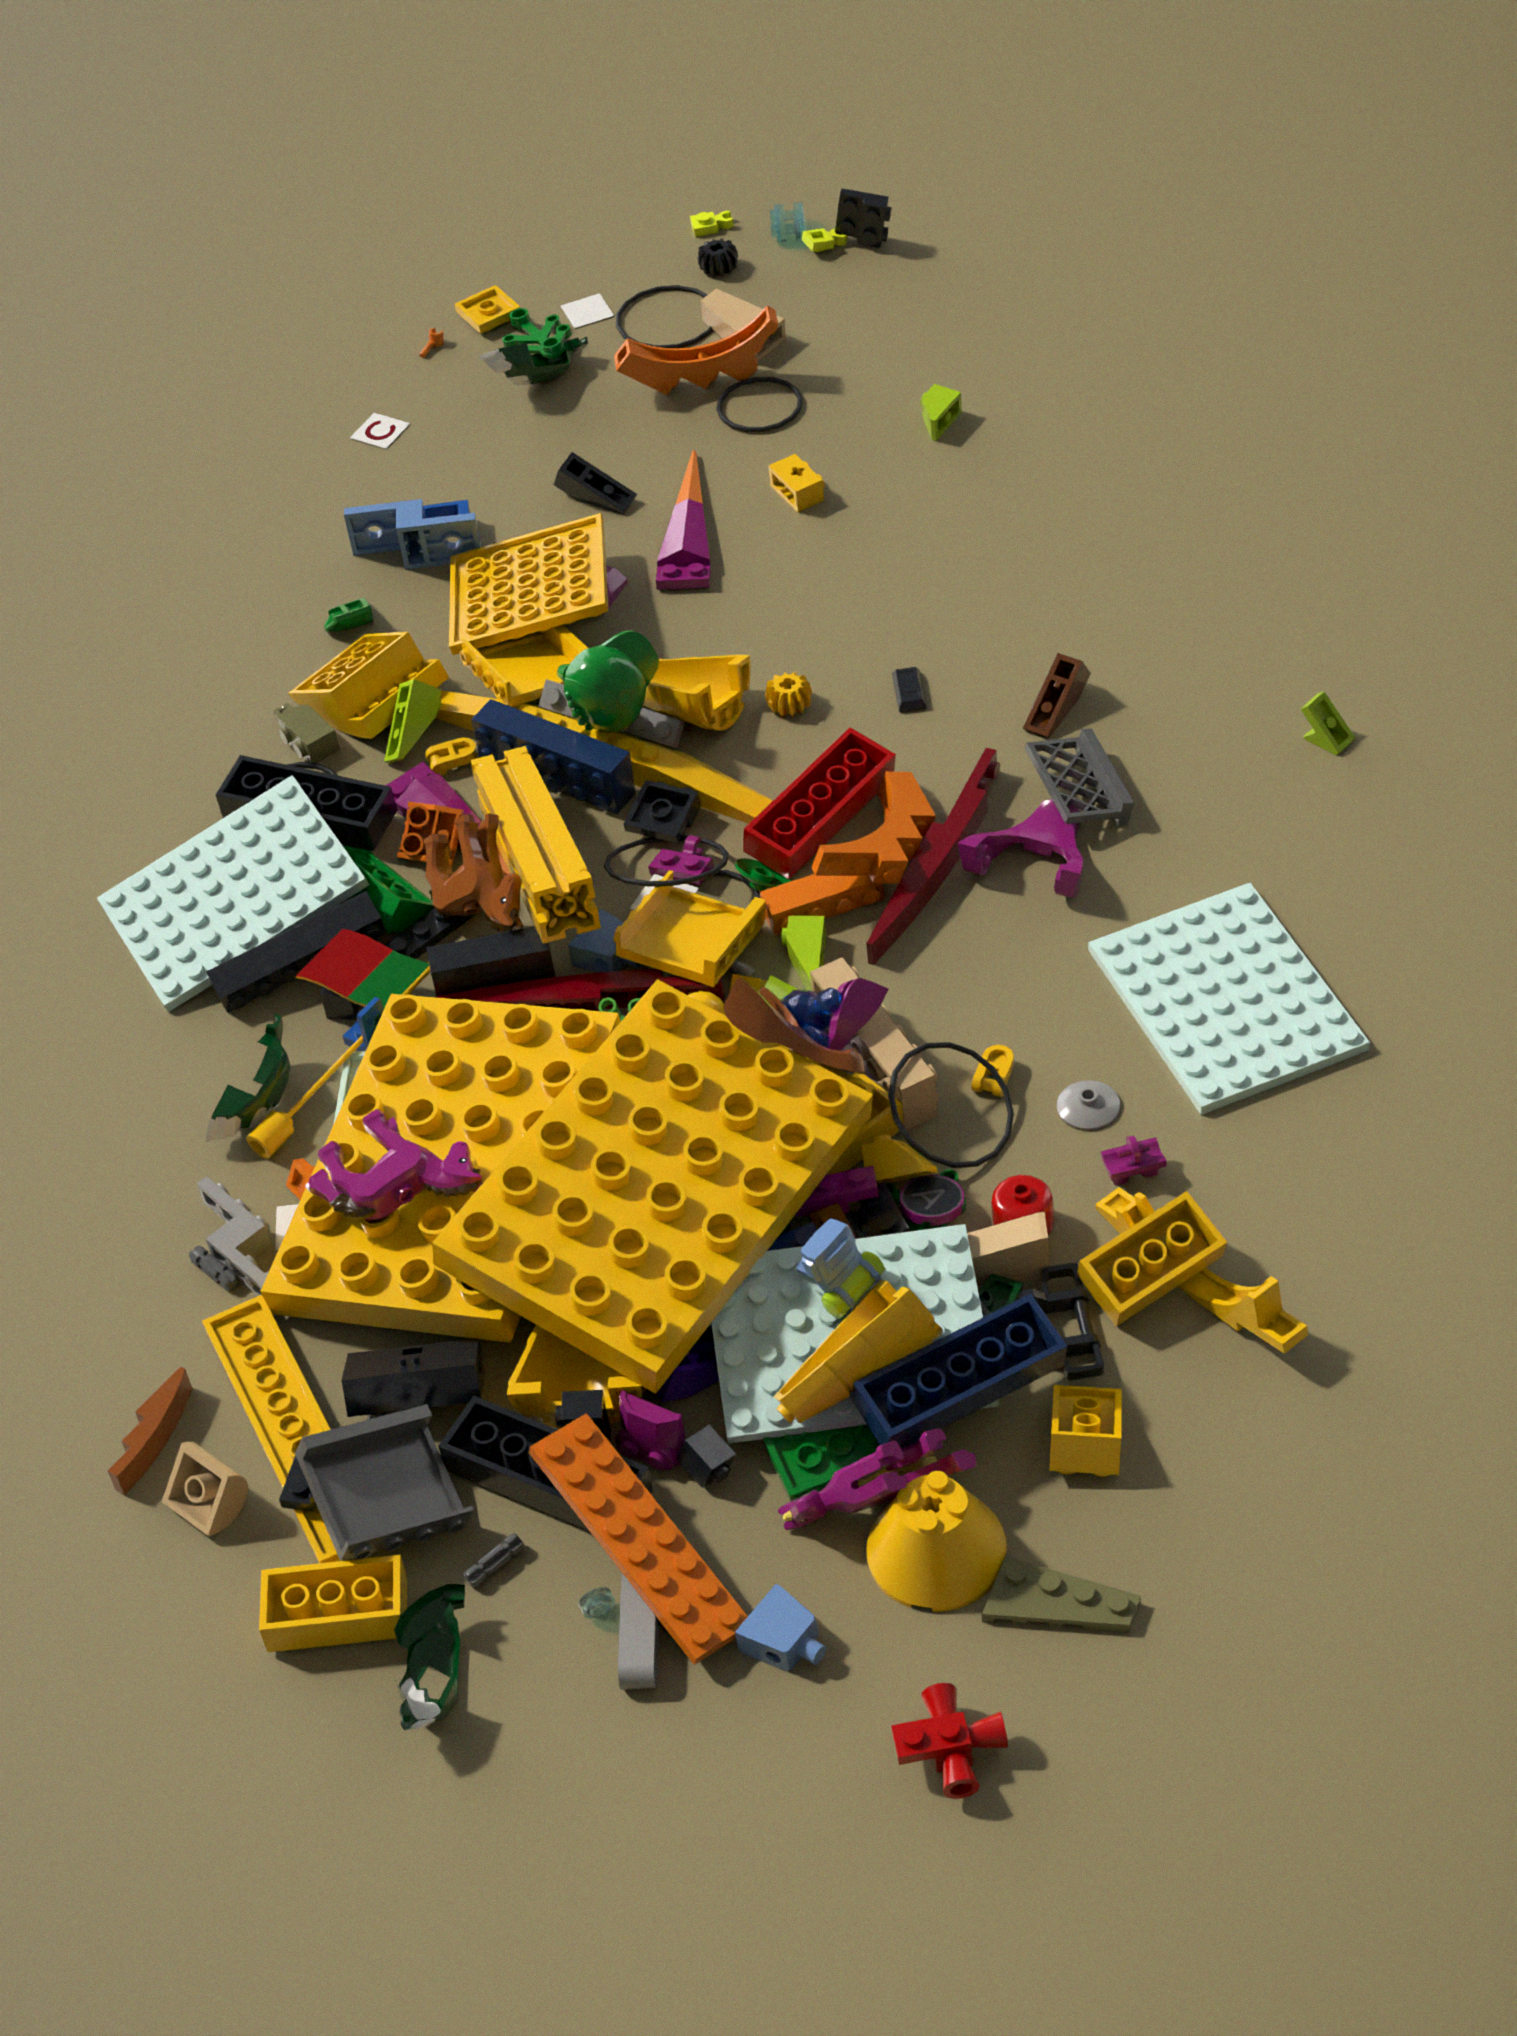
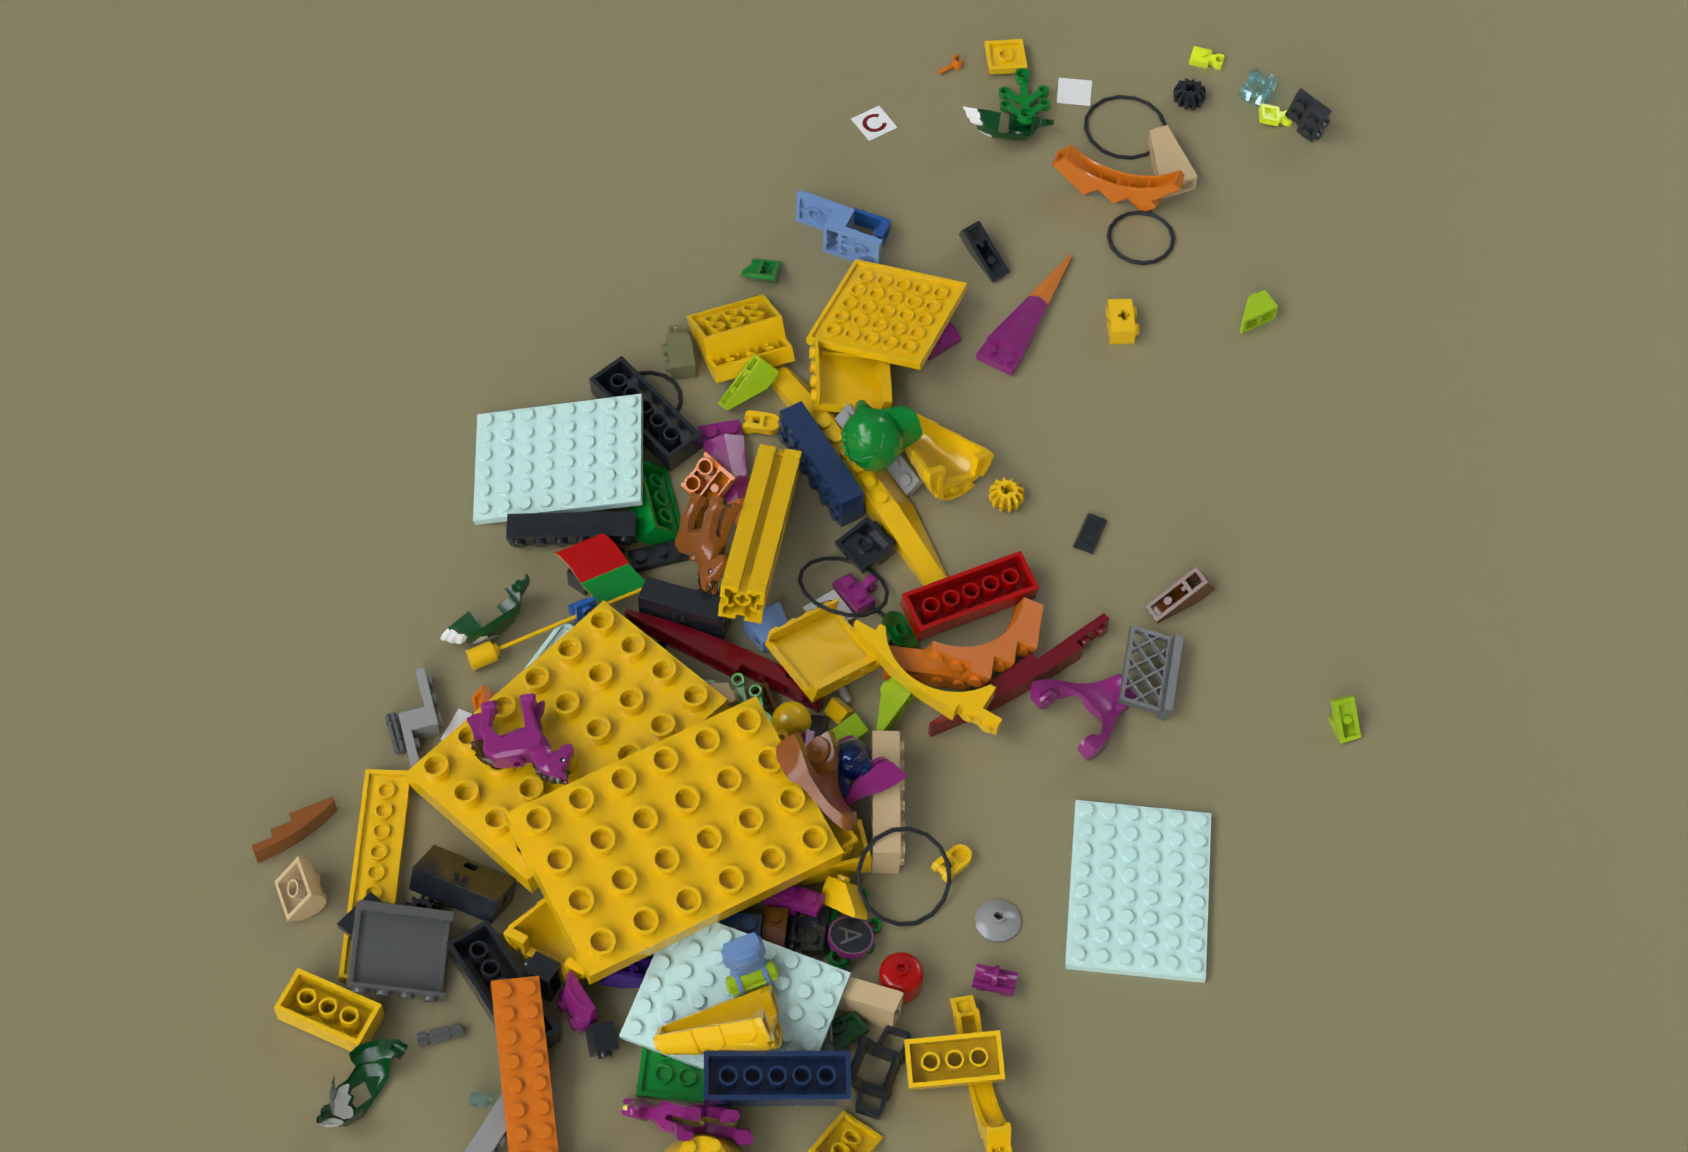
camera: 20 degrees right, 10 degrees up
(897, 900) = (967, 704): none -> yellow slope

